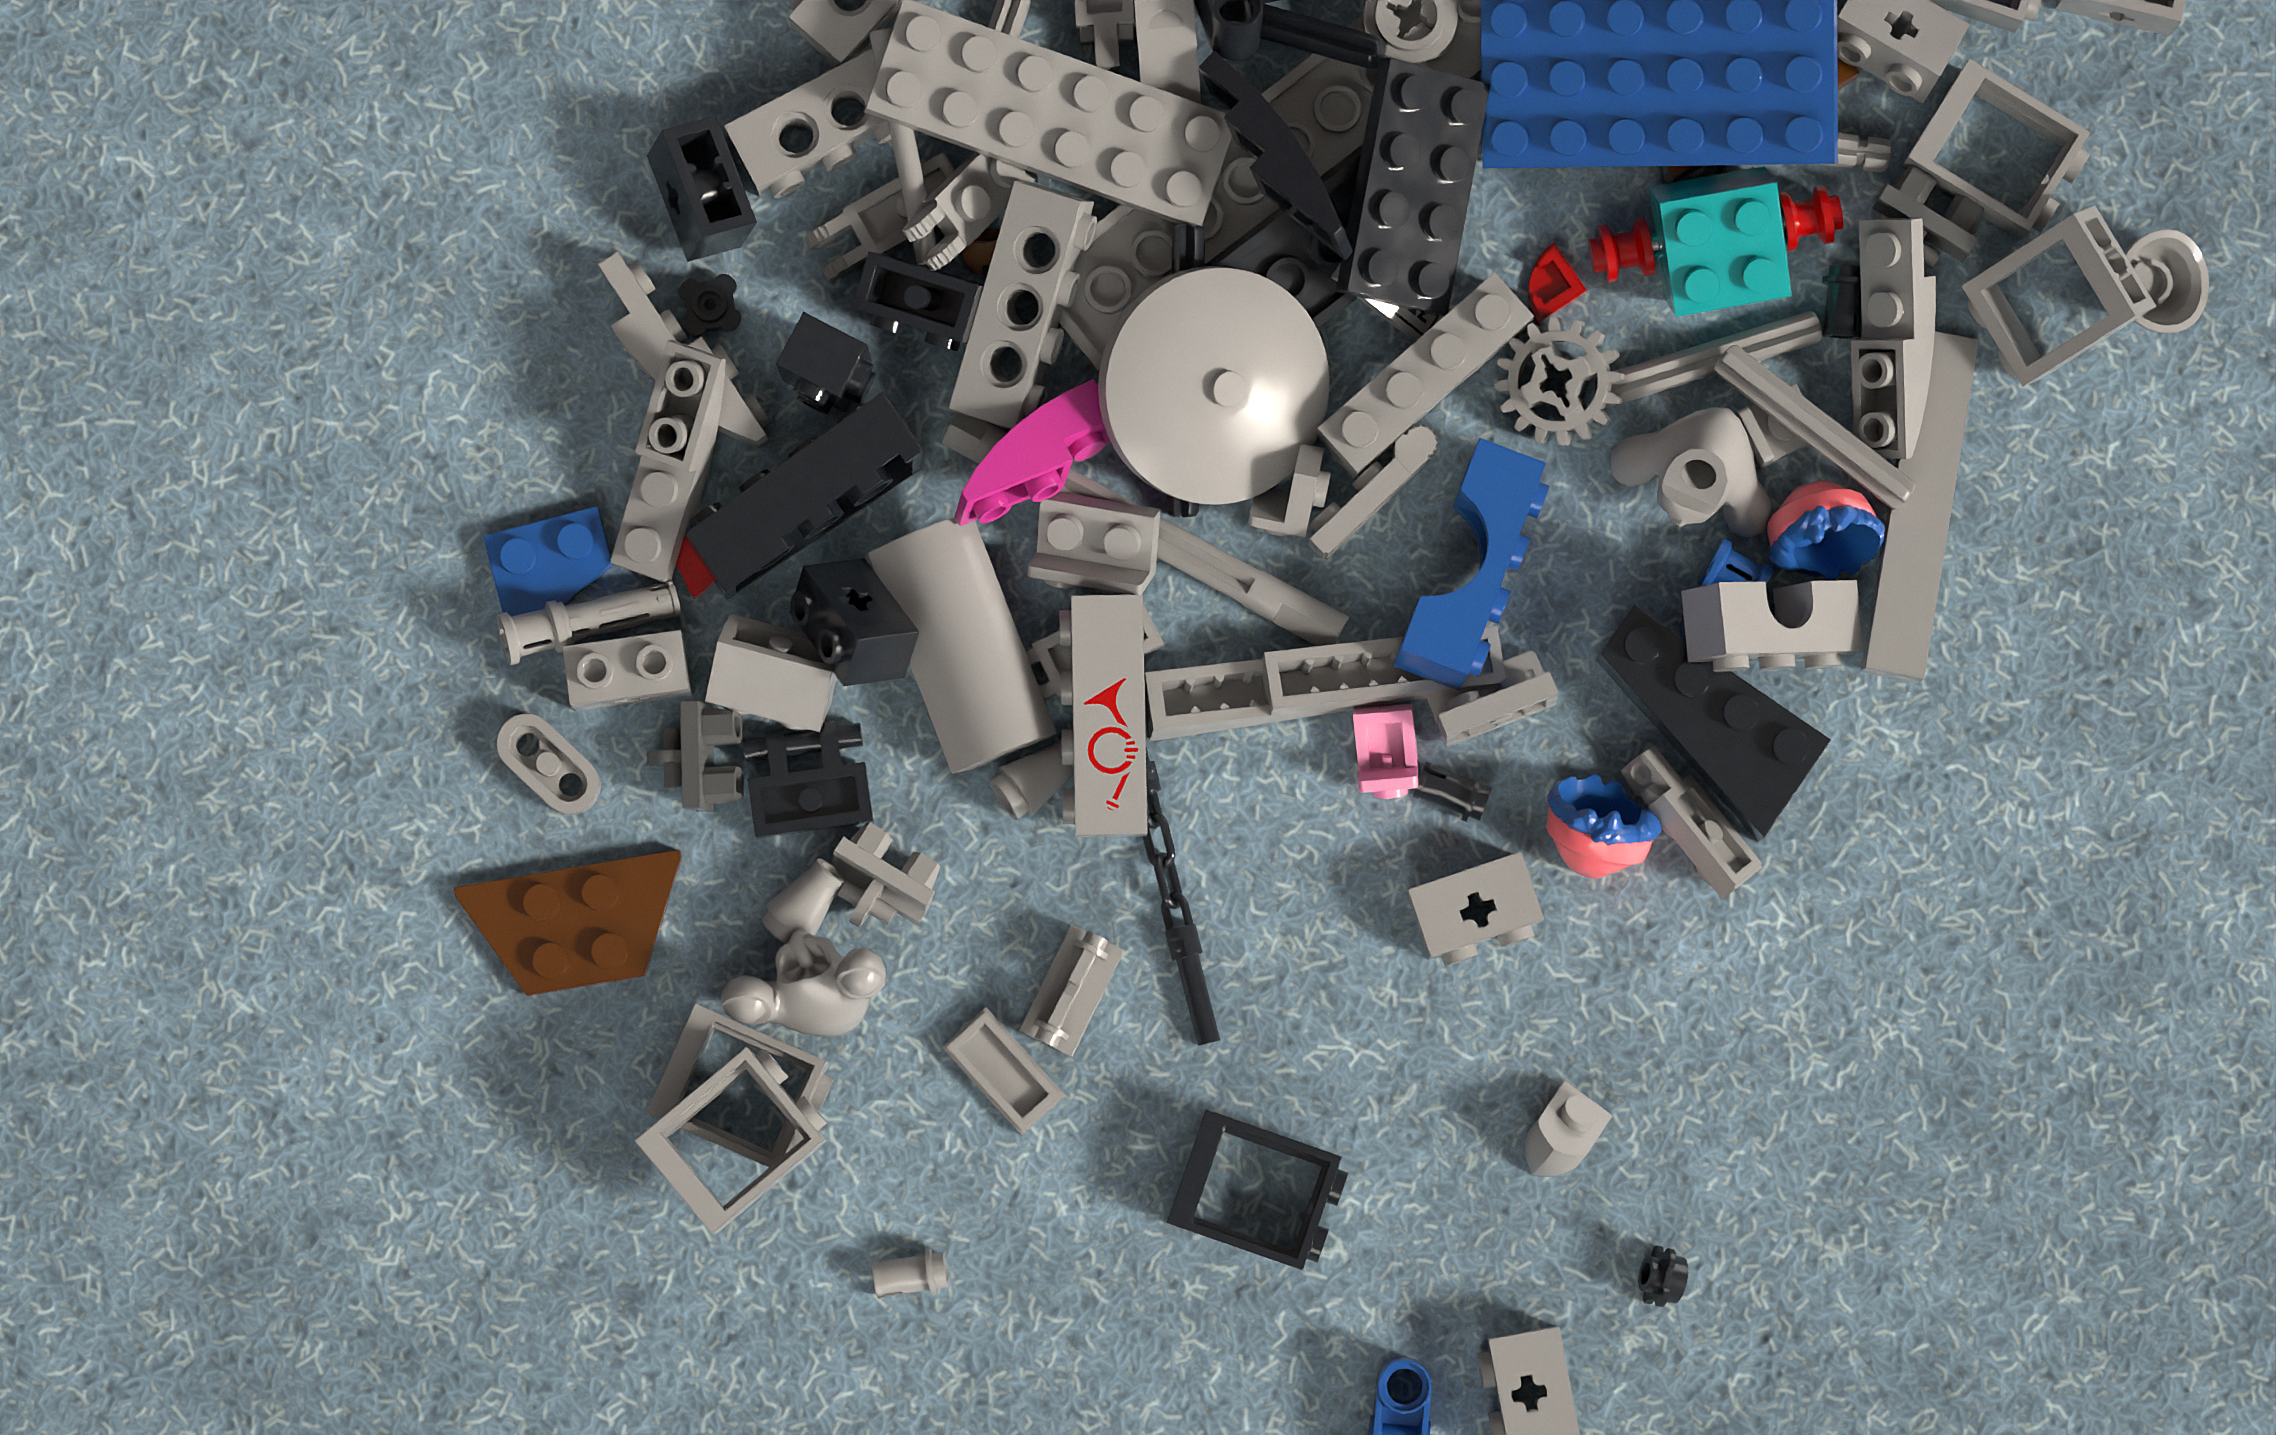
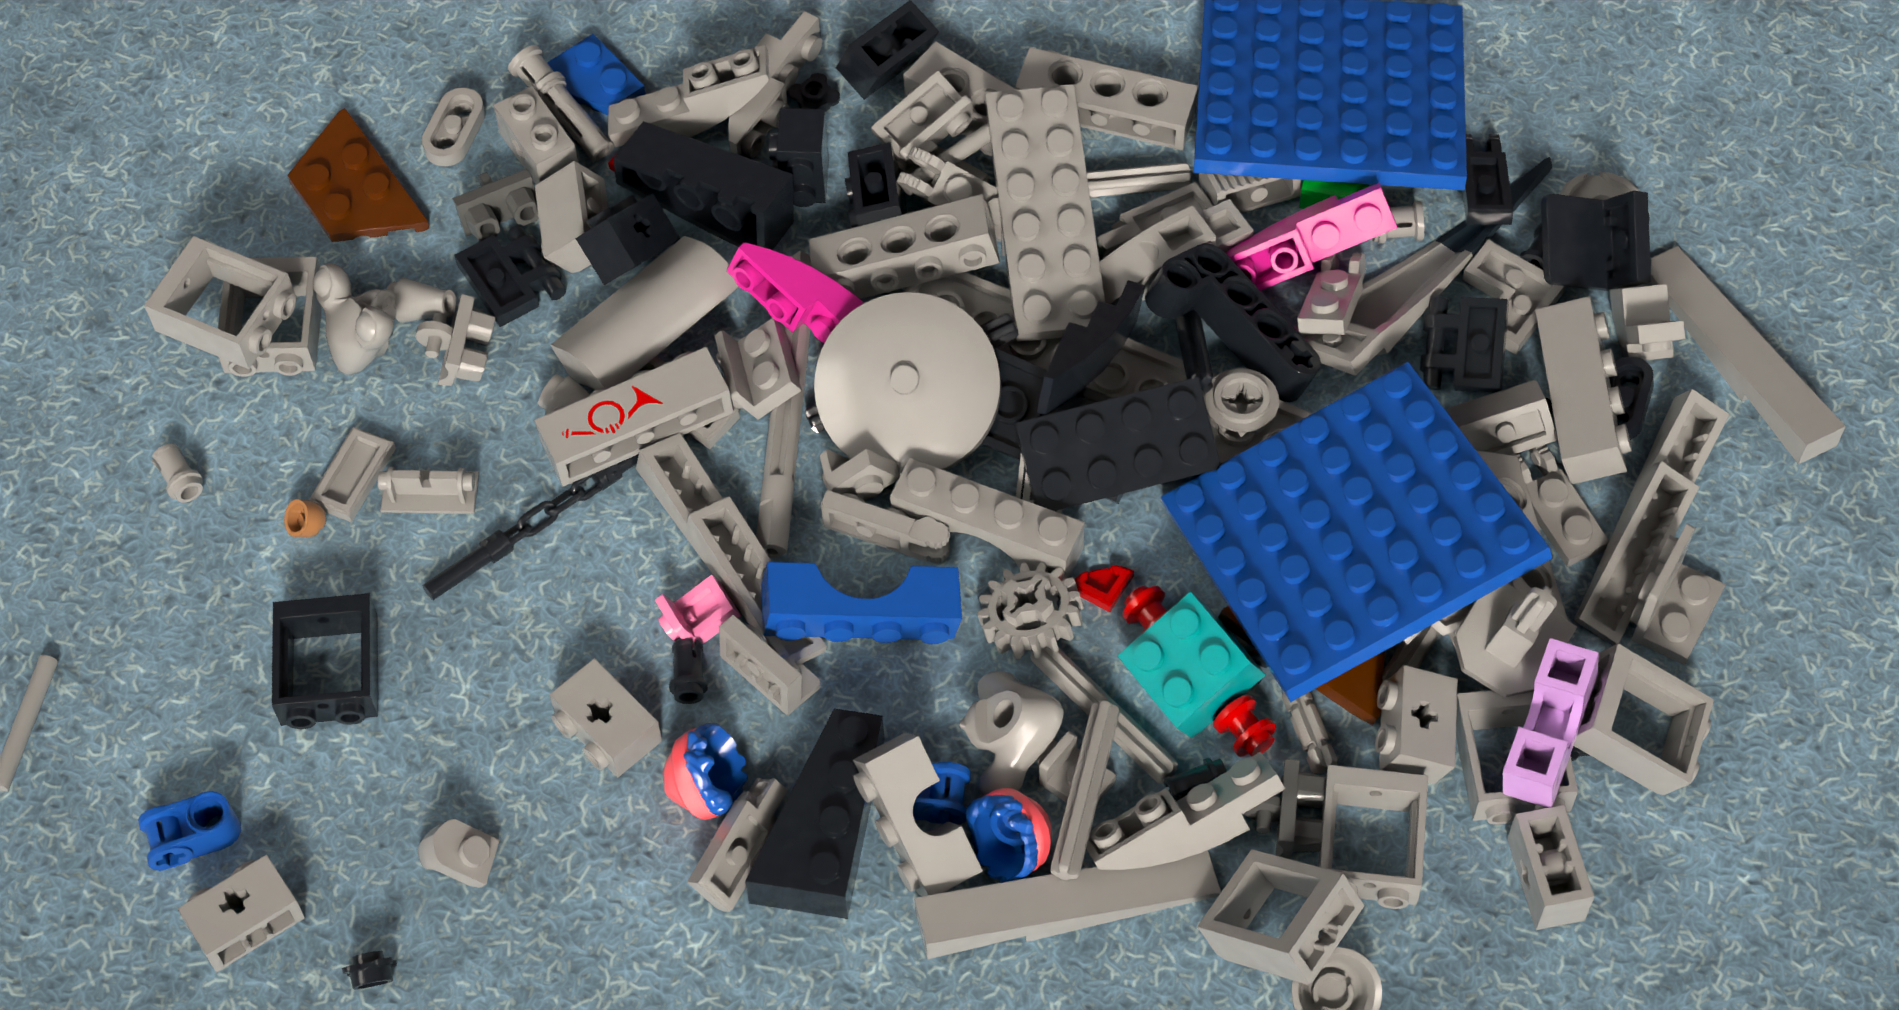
camera: 65 degrees right, 25 degrees down
(850, 196) = (924, 119): none -> light grey bracket
(1046, 1149) = (304, 518): none -> medium nougat hinge

